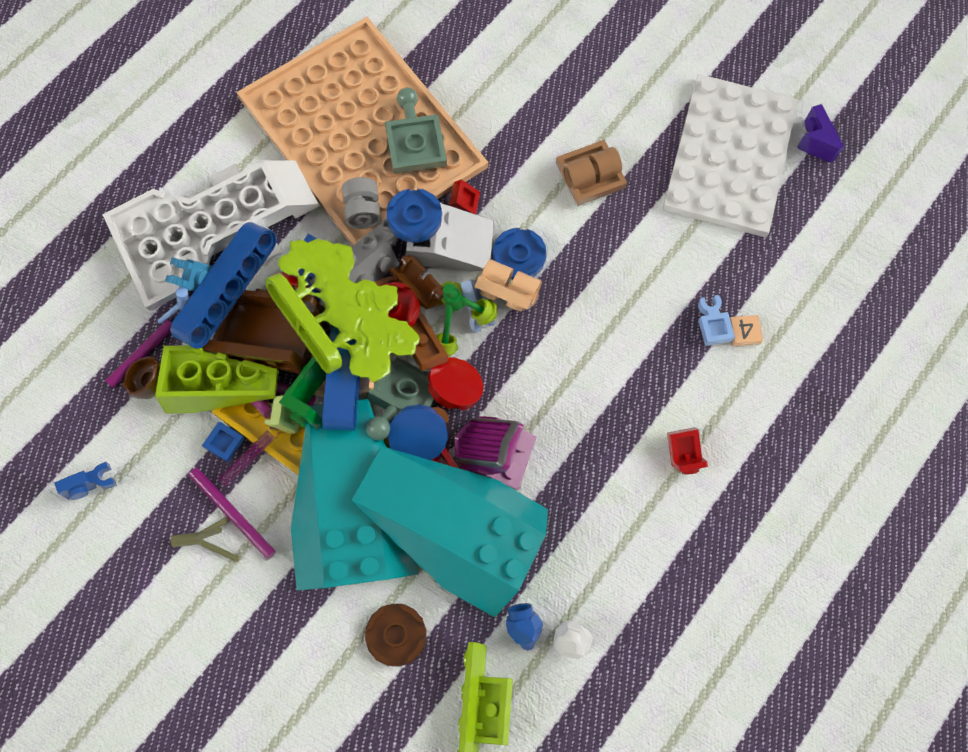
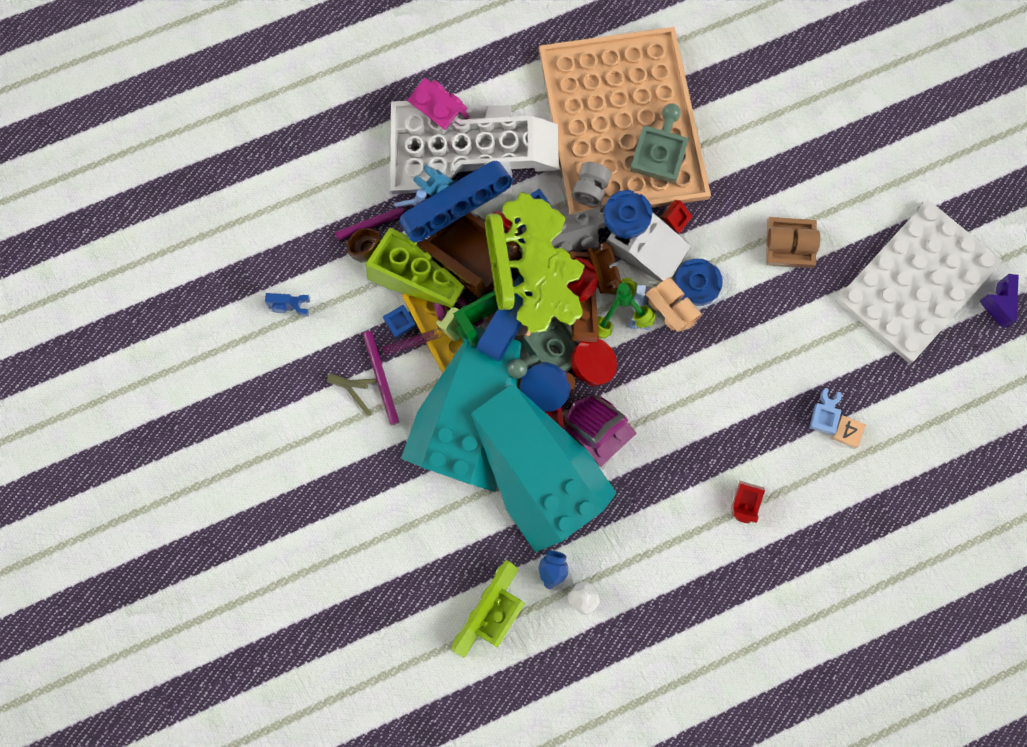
camera: 30 degrees right, 5 degrees up
(154, 194) = (437, 103): none -> dark pink bracket
(395, 635) = (456, 527): reddish brown tile -> none

